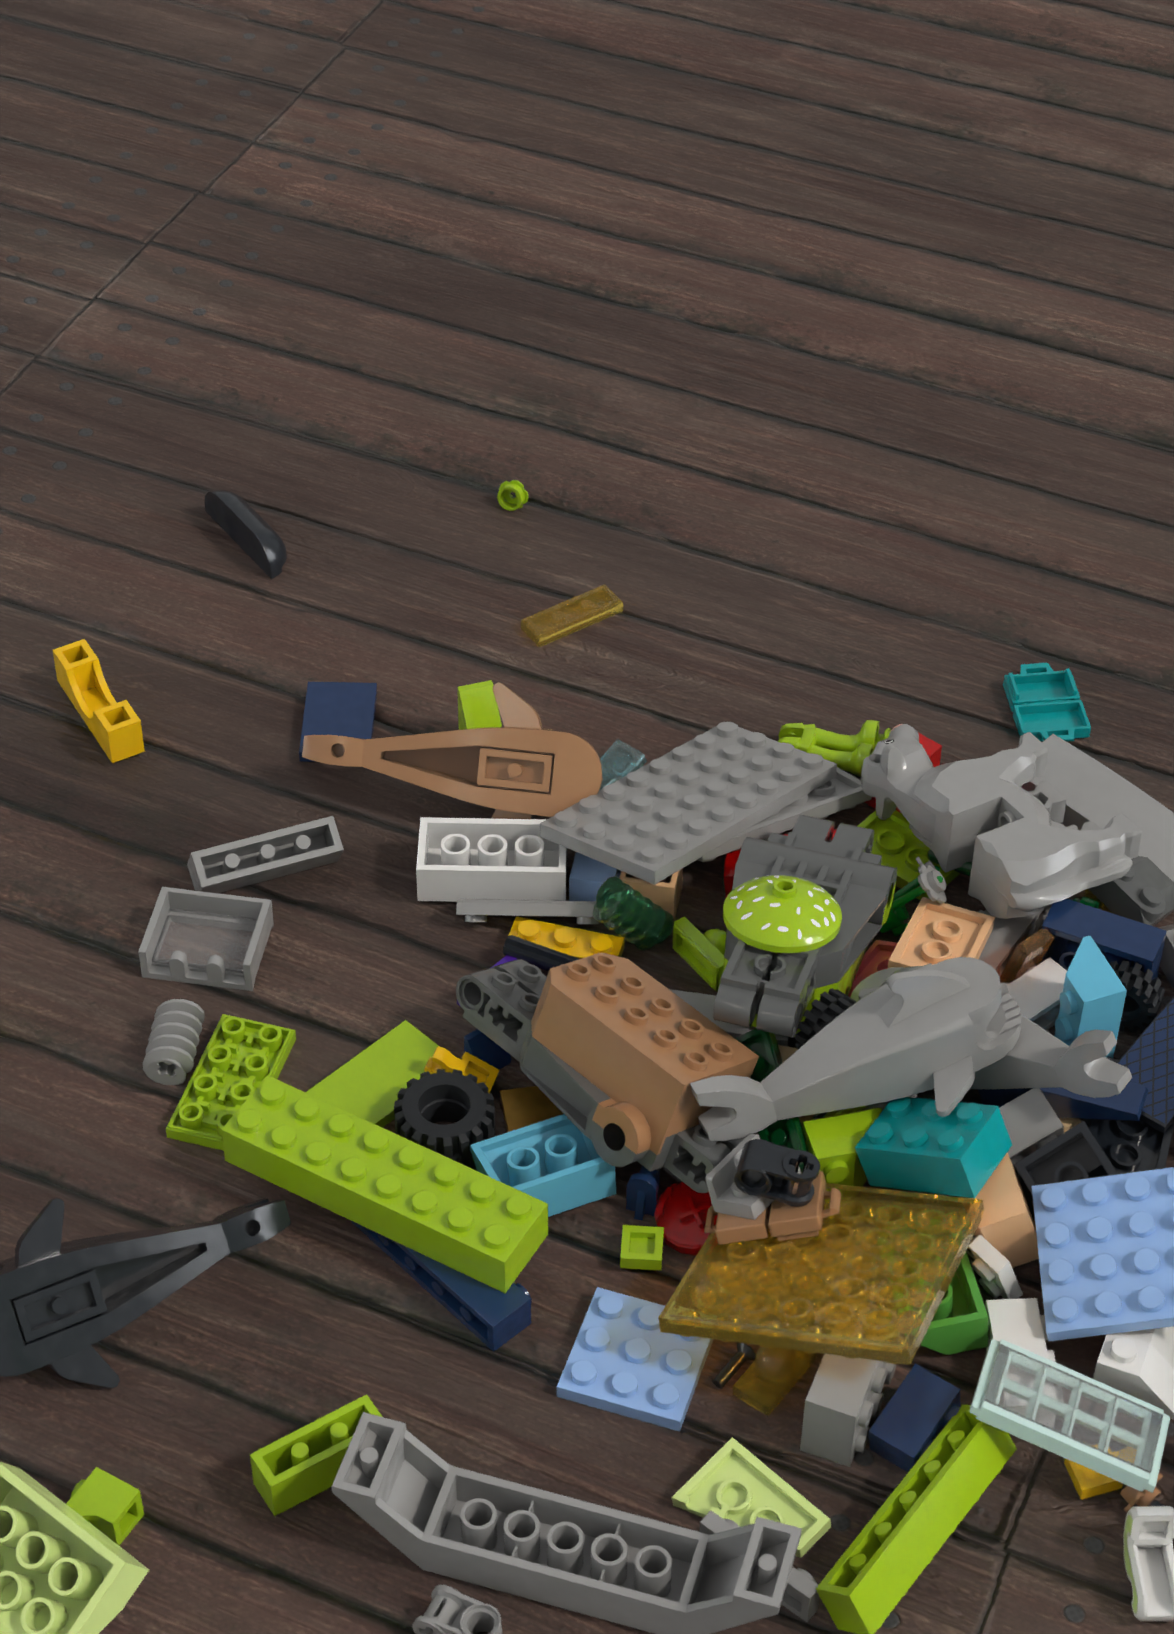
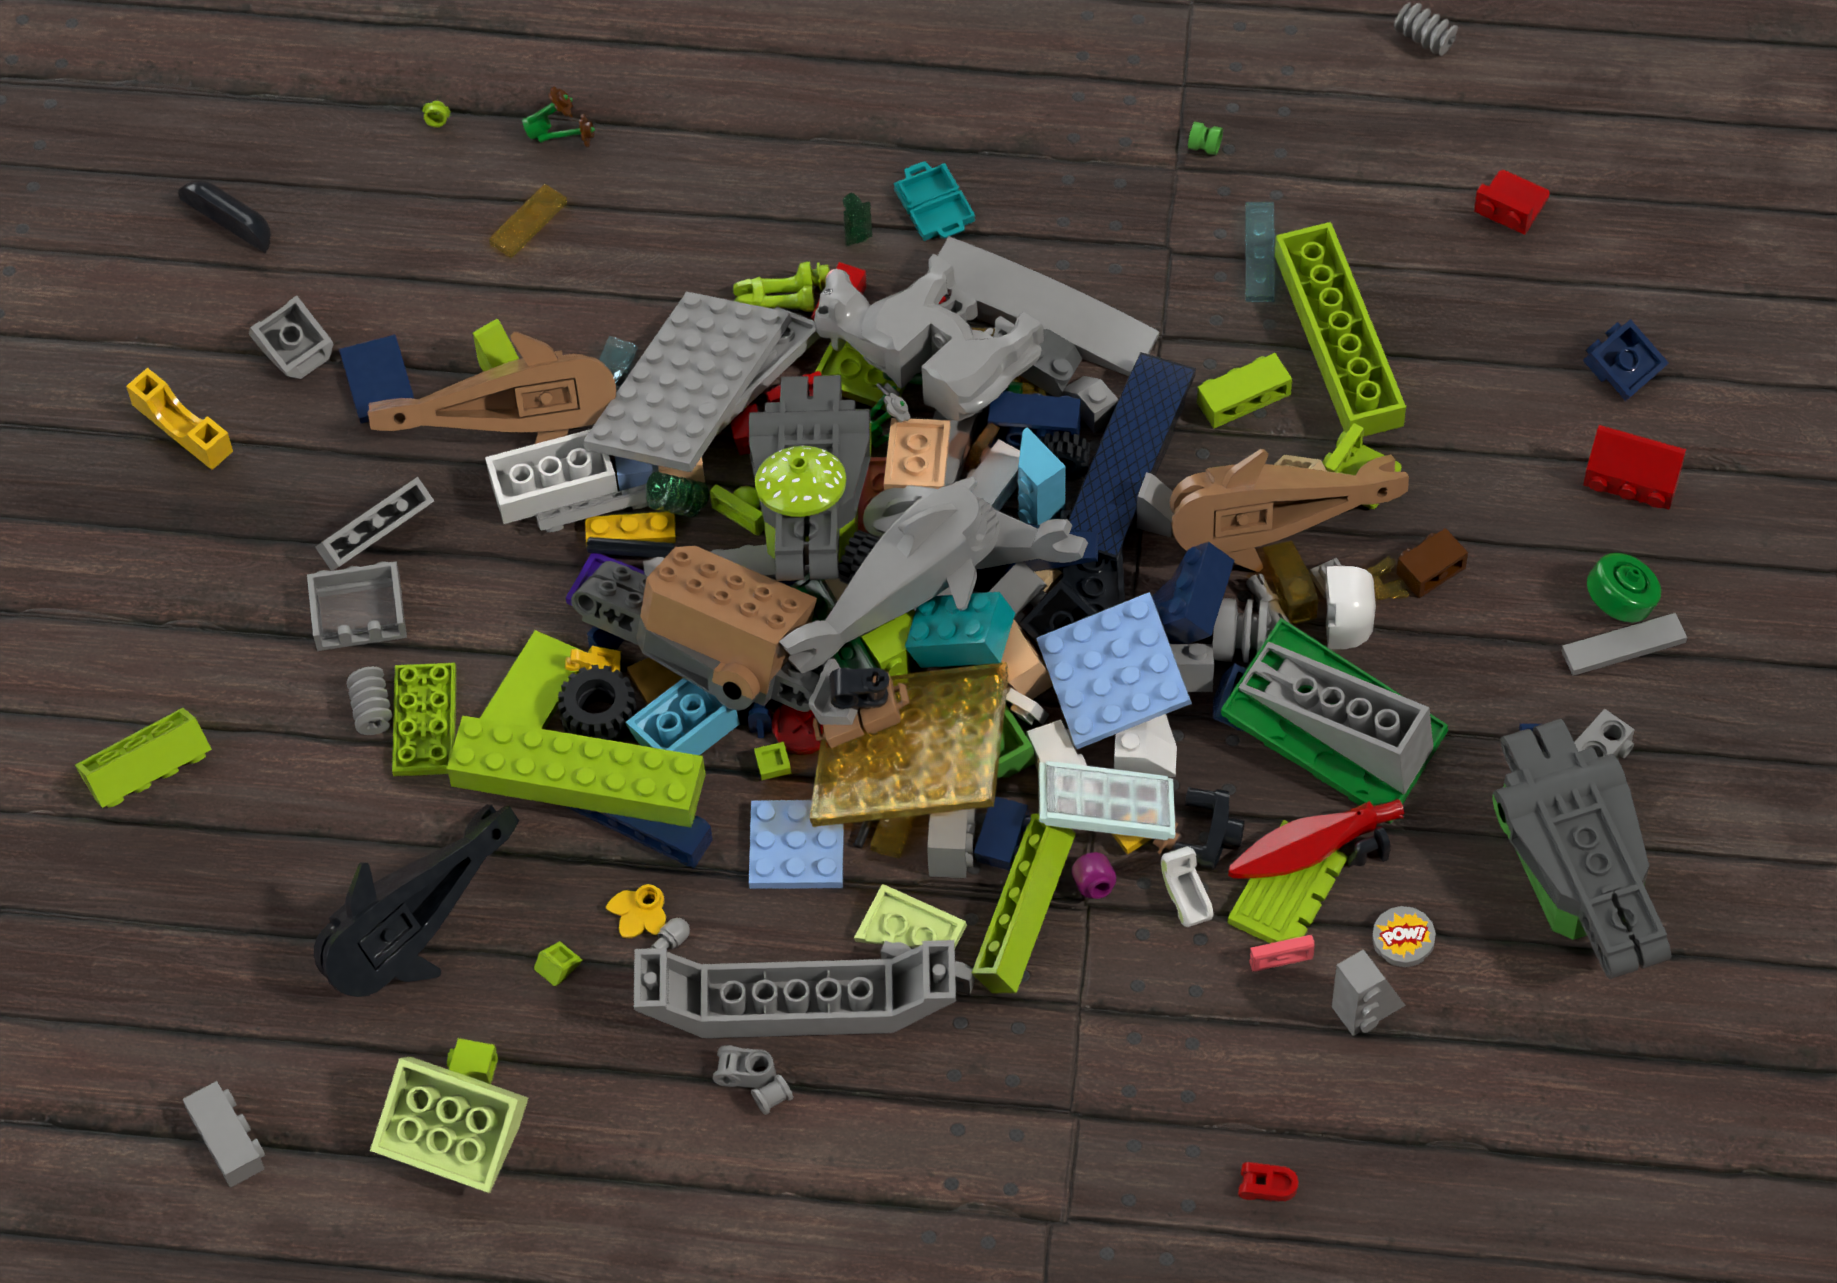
camera: 15 degrees left, 15 degrees up
(260, 657) = (293, 339): none -> light grey slope
(269, 1415) = (556, 963): none -> lime slope
(307, 1458) = (603, 984): lime brick -> none
(398, 1384) = (637, 915): none -> yellow plate
(434, 1422) = (672, 934): none -> light grey cylinder
(618, 529) = (539, 123): none -> plant
(948, 694) = (856, 220): none -> clear green hinge
(1026, 1511) = (1093, 875): none -> magenta head

